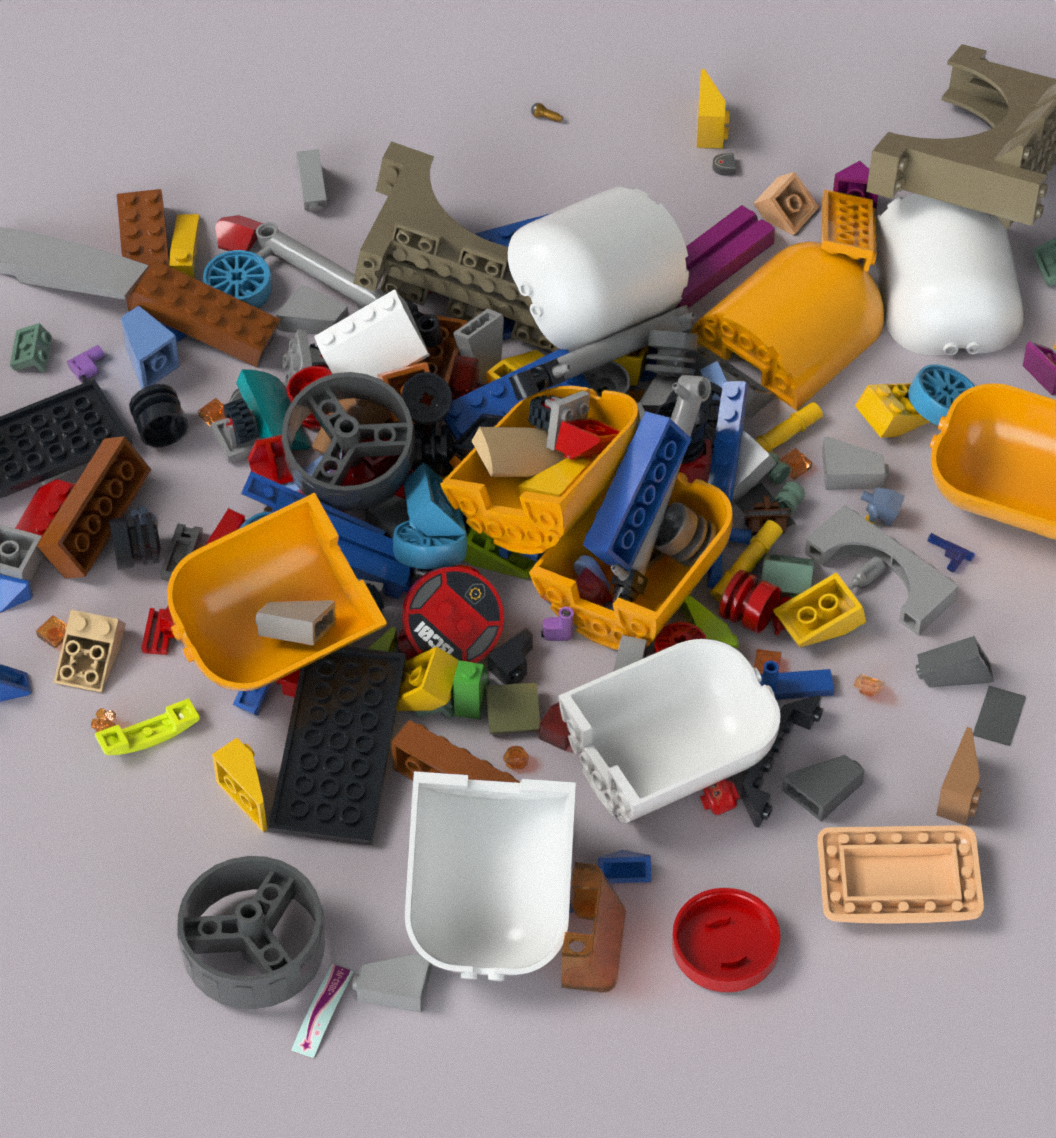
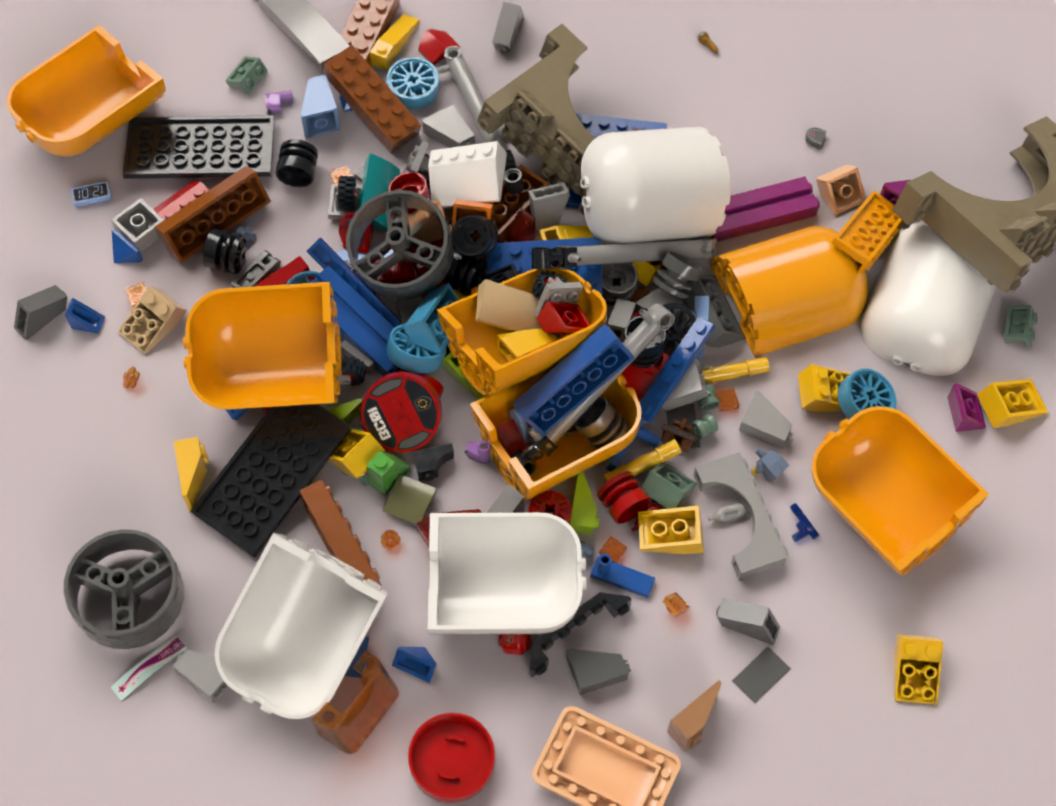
camera: 25 degrees right, 10 degrees up
(149, 732) = (154, 400): neon yellow slope -> none
(296, 620) = (282, 368): light grey slope -> none
(711, 115) = (822, 95): yellow slope -> none

